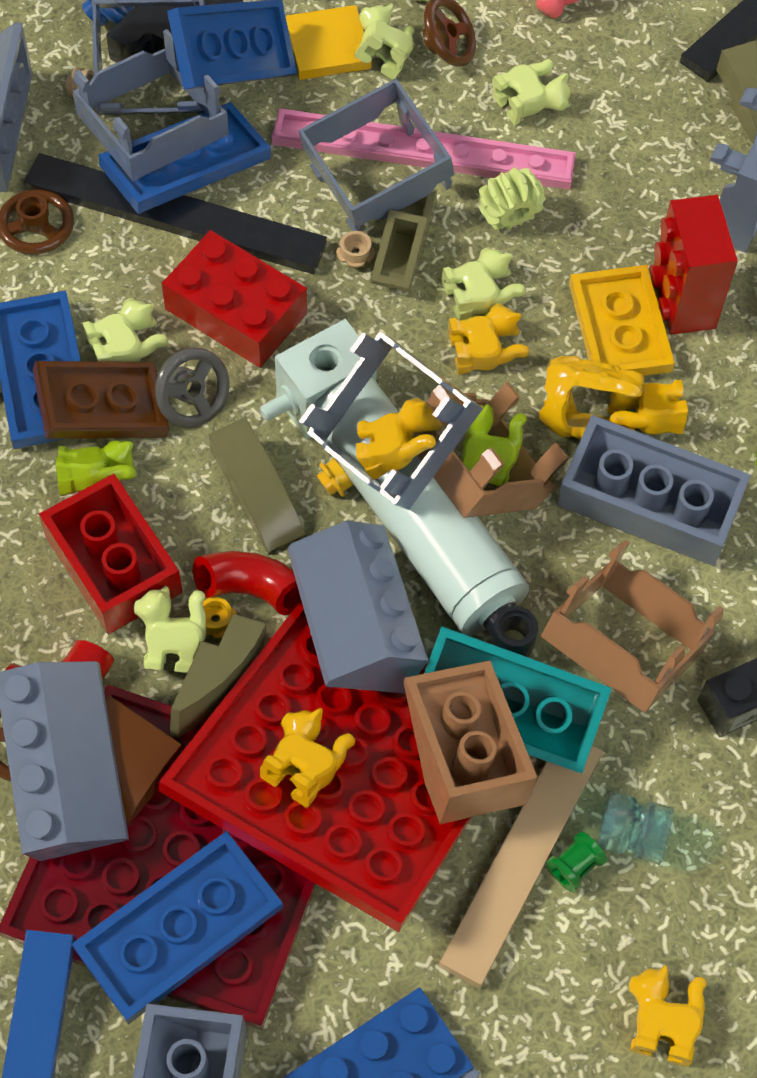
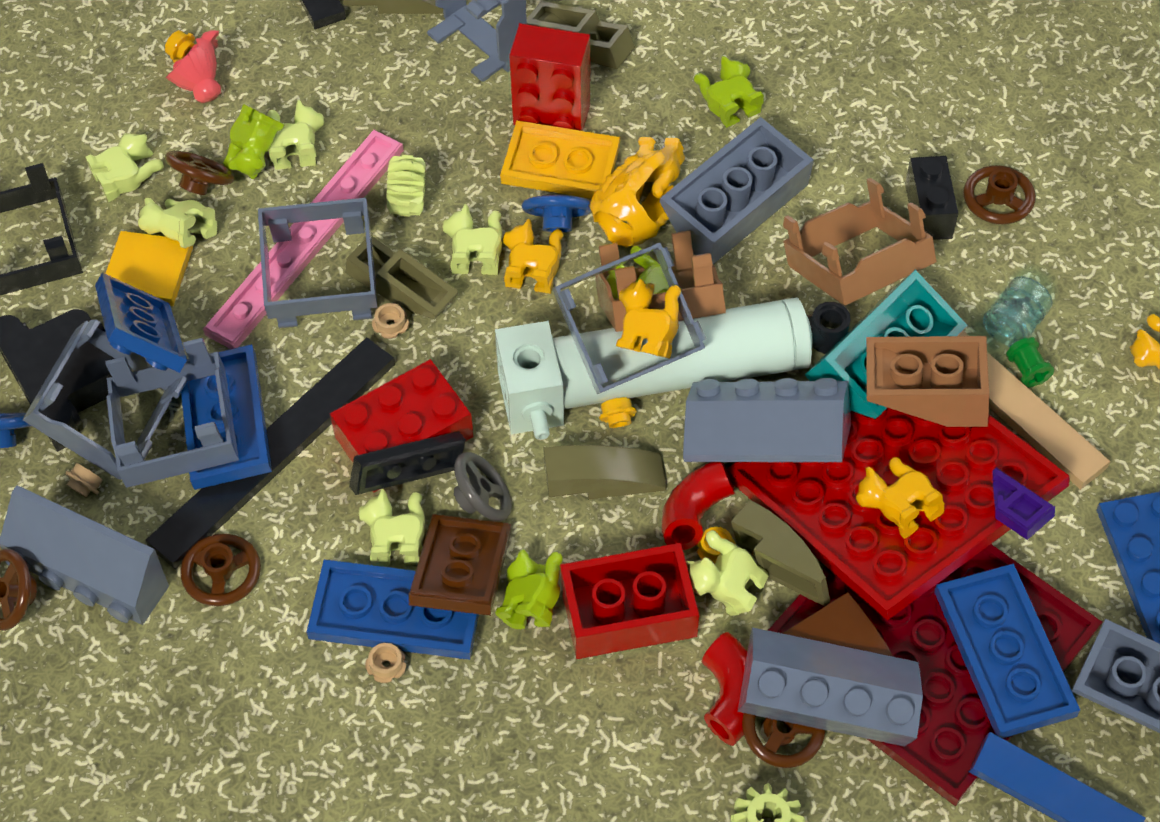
camera: 65 degrees left, 5 degrees down
(184, 311) = (405, 462): none -> black tile
(334, 877) = (1019, 506): none -> dark purple tile
(502, 56) = (250, 140): none -> lime animal
(545, 336) = (557, 210): none -> blue piece

